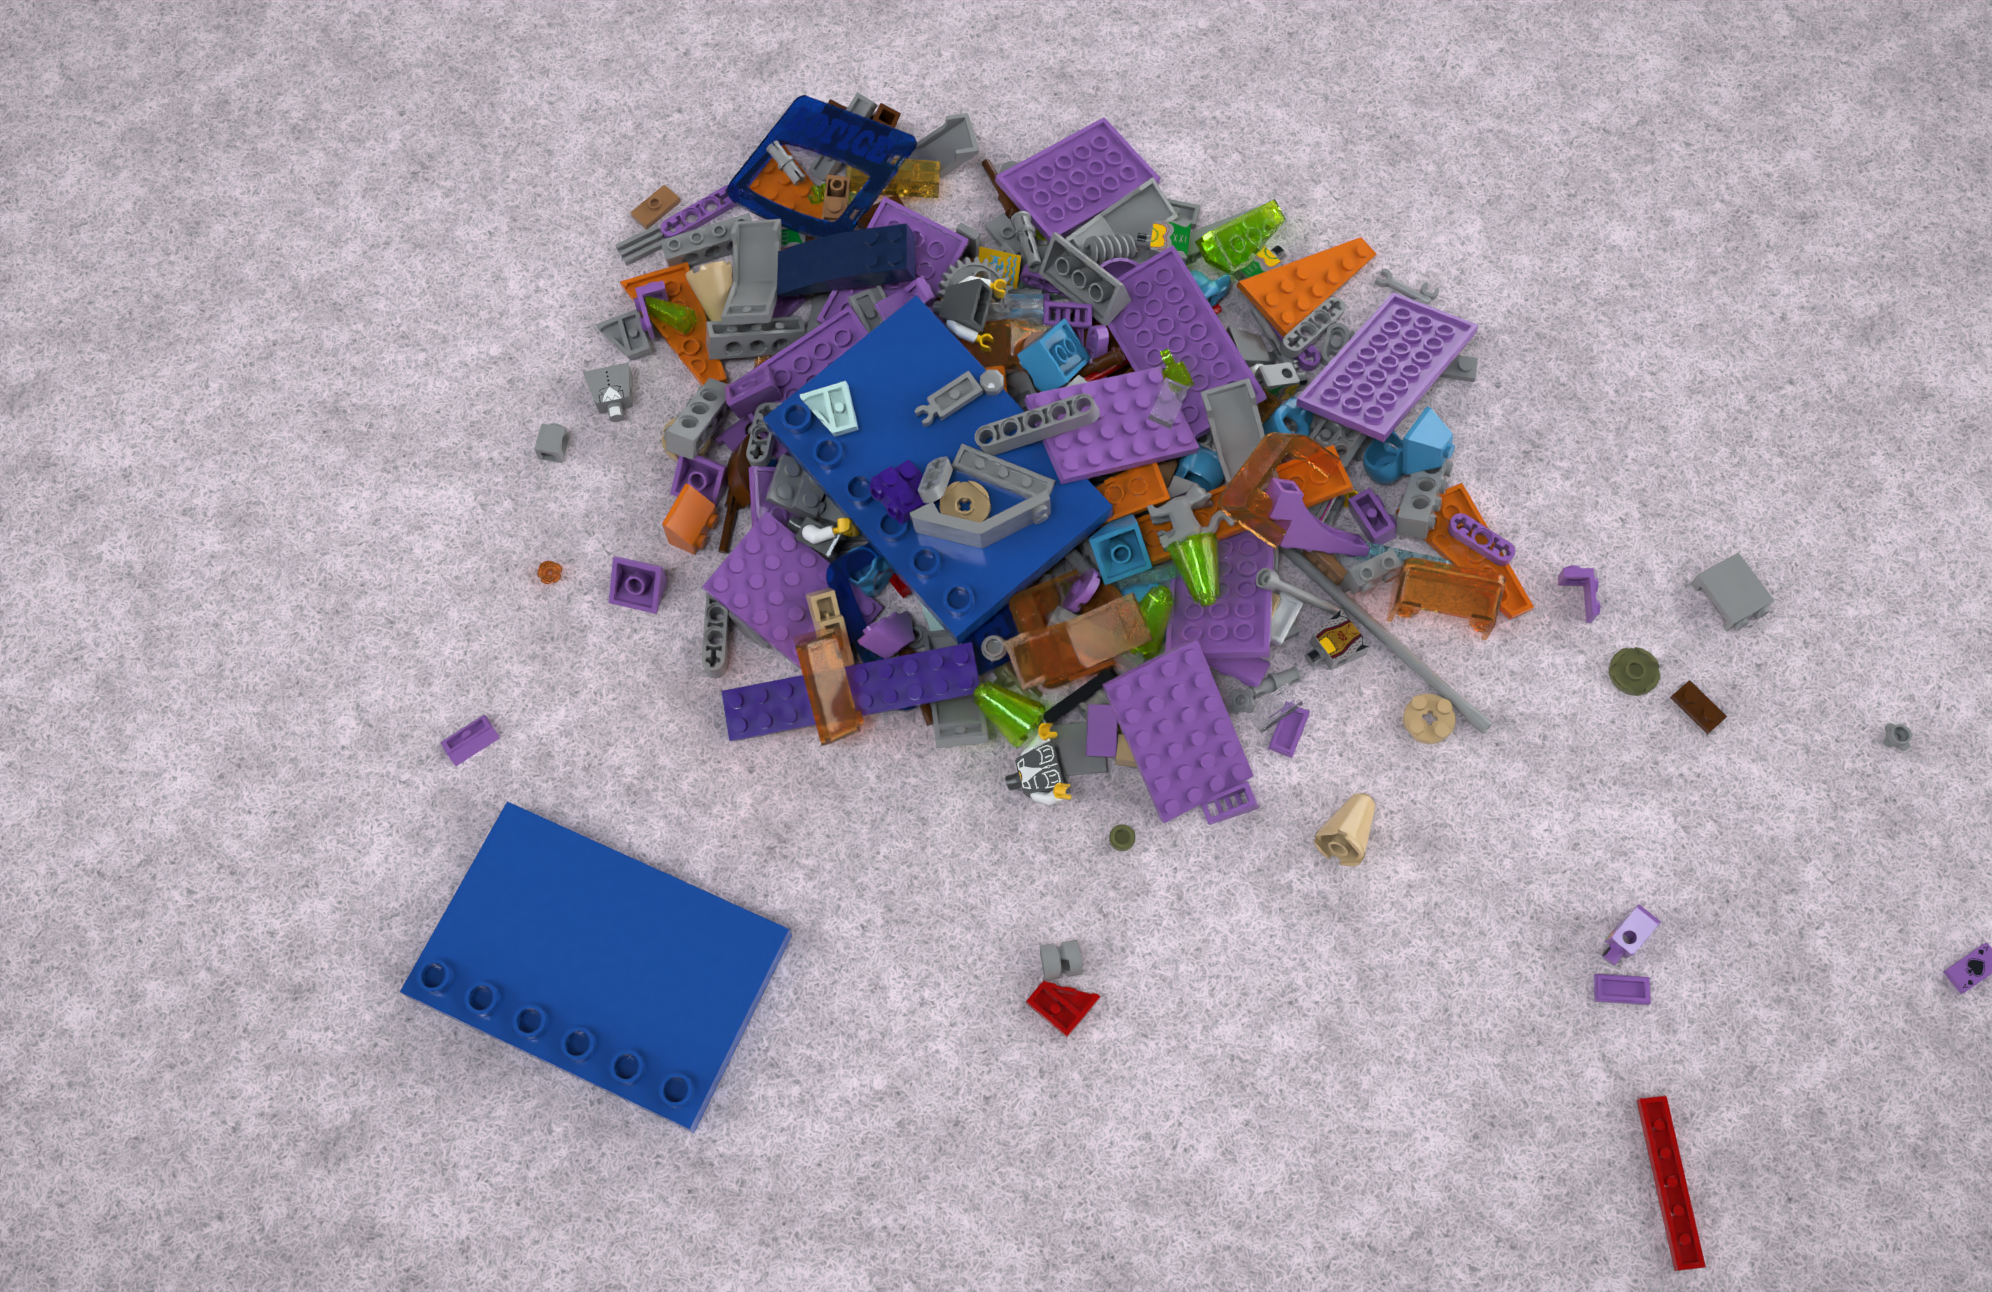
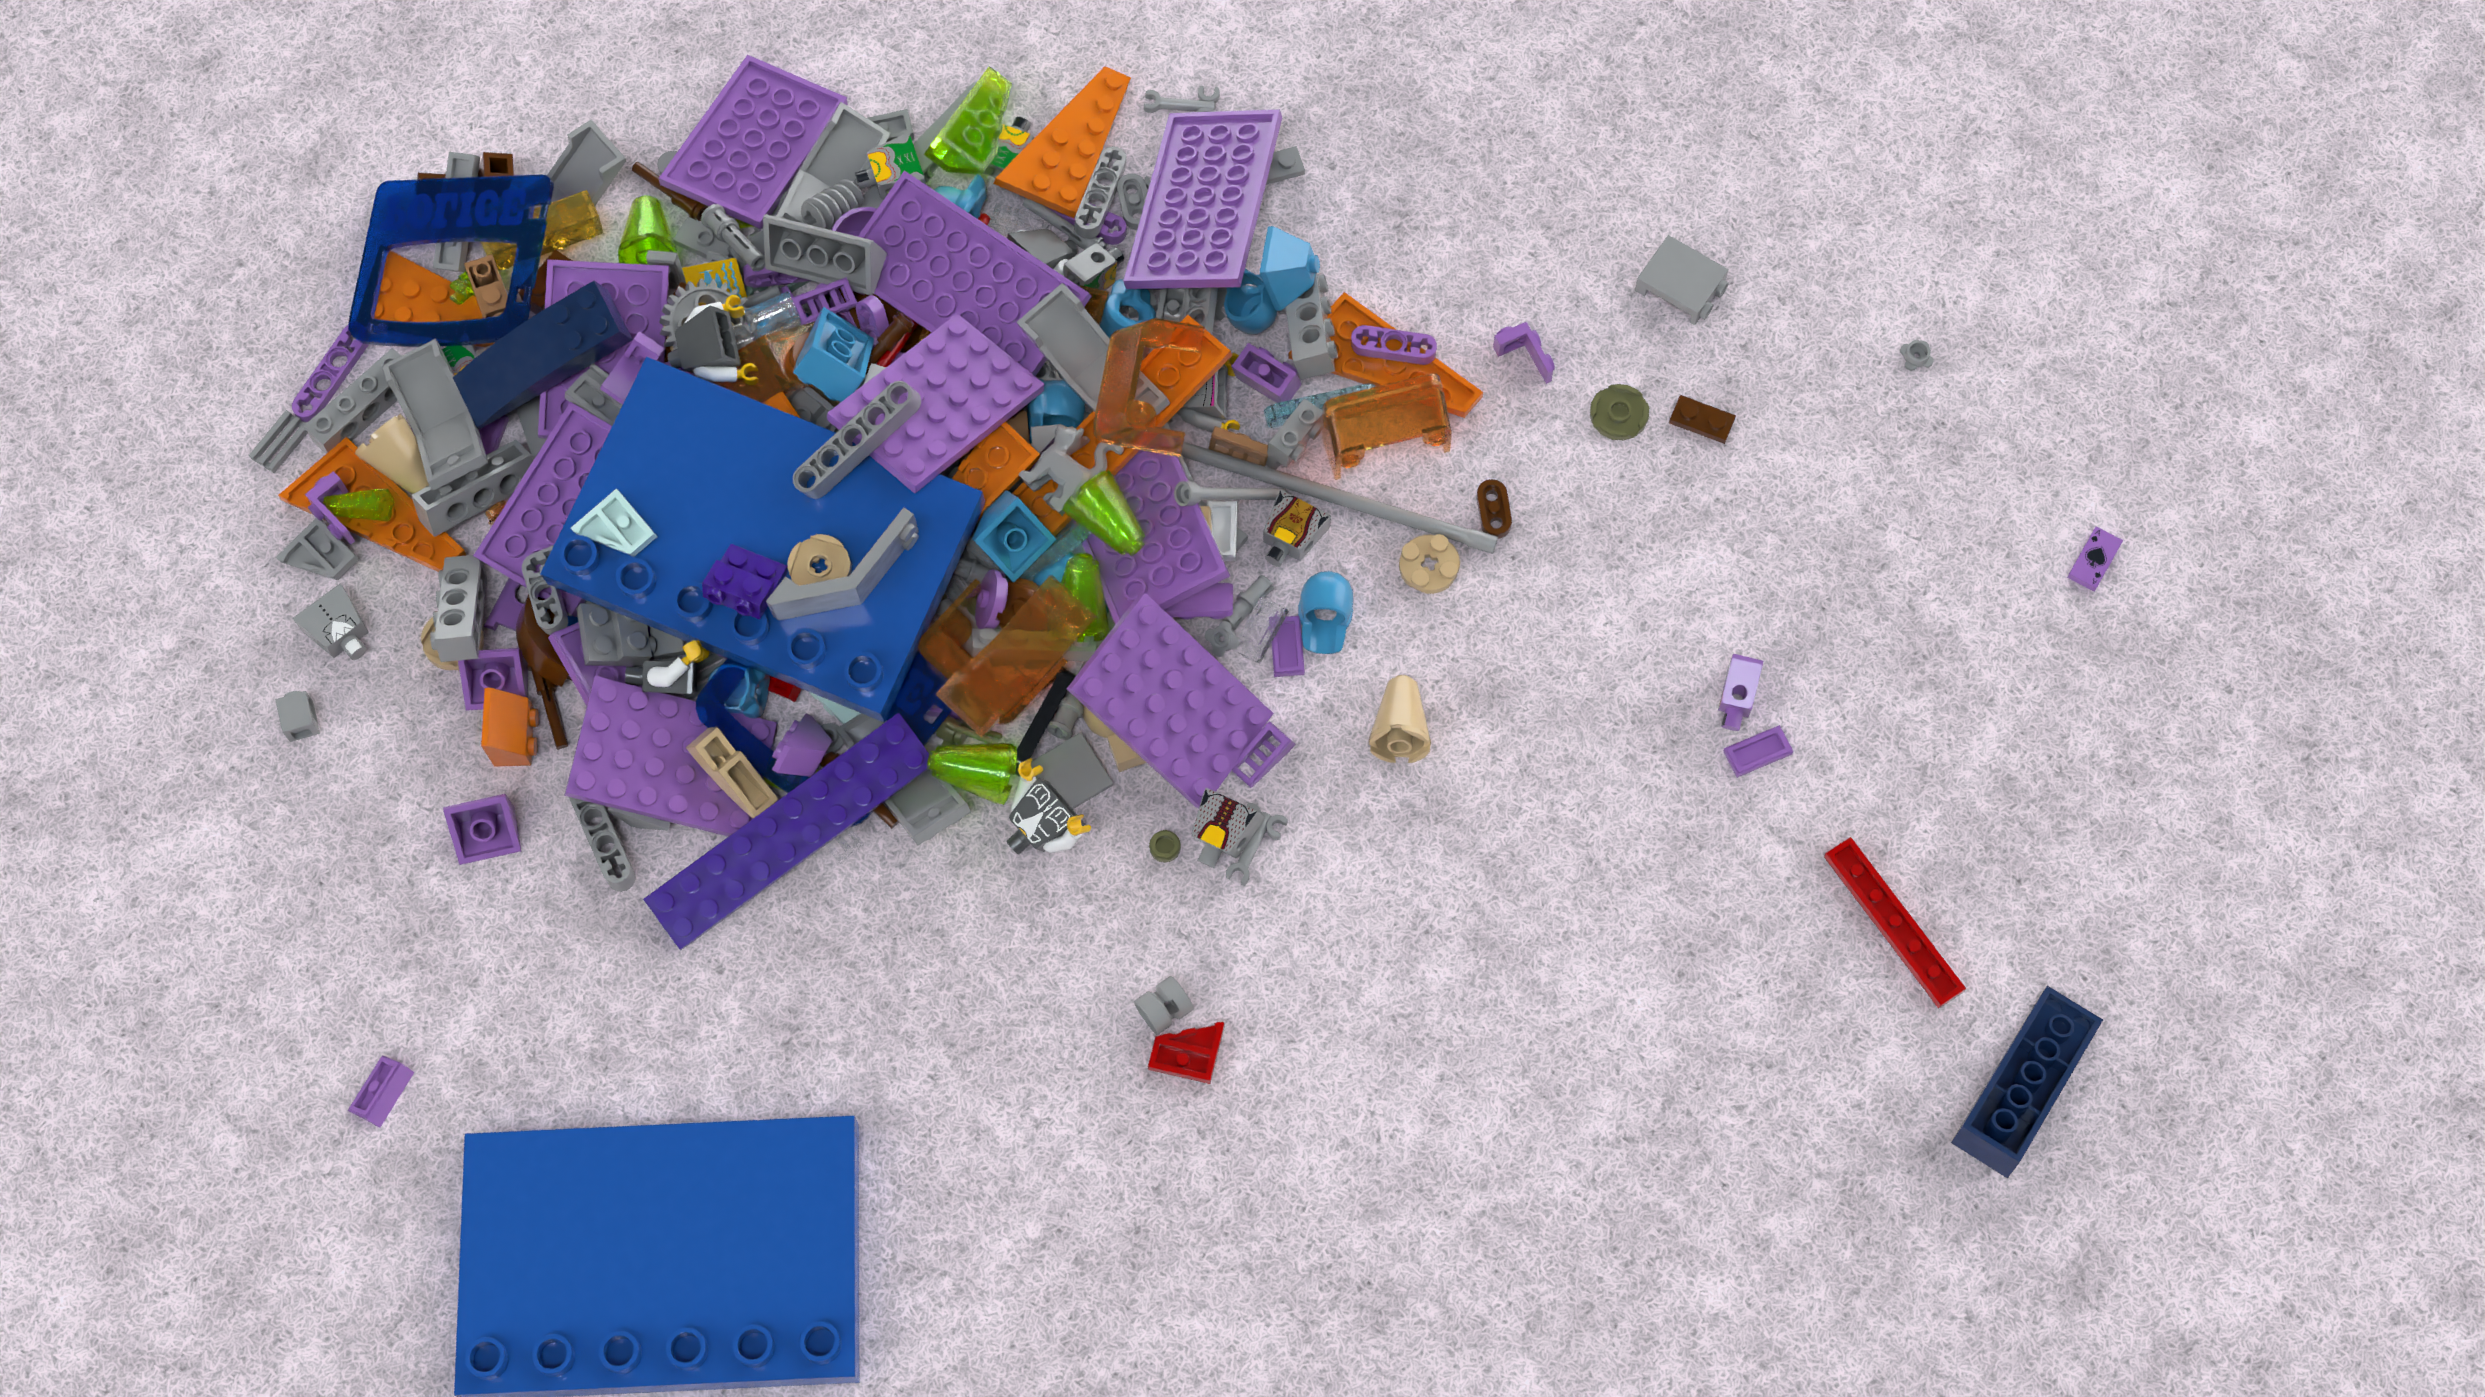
camera: 25 degrees left, 0 degrees up
(548, 566) = (370, 855): clear orange plate -> none
(655, 207) = (272, 389): medium nougat plate -> none
(751, 391) = (505, 550): medium lavender slope -> none
(786, 163) = (405, 270): light grey pin -> none
(827, 685) = (764, 832): clear orange windscreen -> none
(935, 479) = (774, 552): light grey beam -> none
(950, 398) = (744, 454): light grey plate -> none
(968, 209) = (645, 231): none -> clear neon green cone
(992, 382) = (781, 415): light grey tile -> none
(993, 648) = (925, 707): light grey plate -> none
(1001, 473) = (841, 511): light grey tile -> none
(1101, 731) = (1087, 742): medium lavender slope -> none
(1168, 403) = (987, 350): clear tile -> none
(1173, 845) = (1223, 826): none -> light grey torso
(1175, 372) = (978, 315): clear neon green plate -> none
(1204, 856) = (1252, 846): none -> light grey bar
(1304, 528) = (1199, 419): medium lavender arch -> none
(1341, 705) = (1329, 592): none -> dark azure piece
(1500, 701) = (1494, 510): none -> reddish brown plate

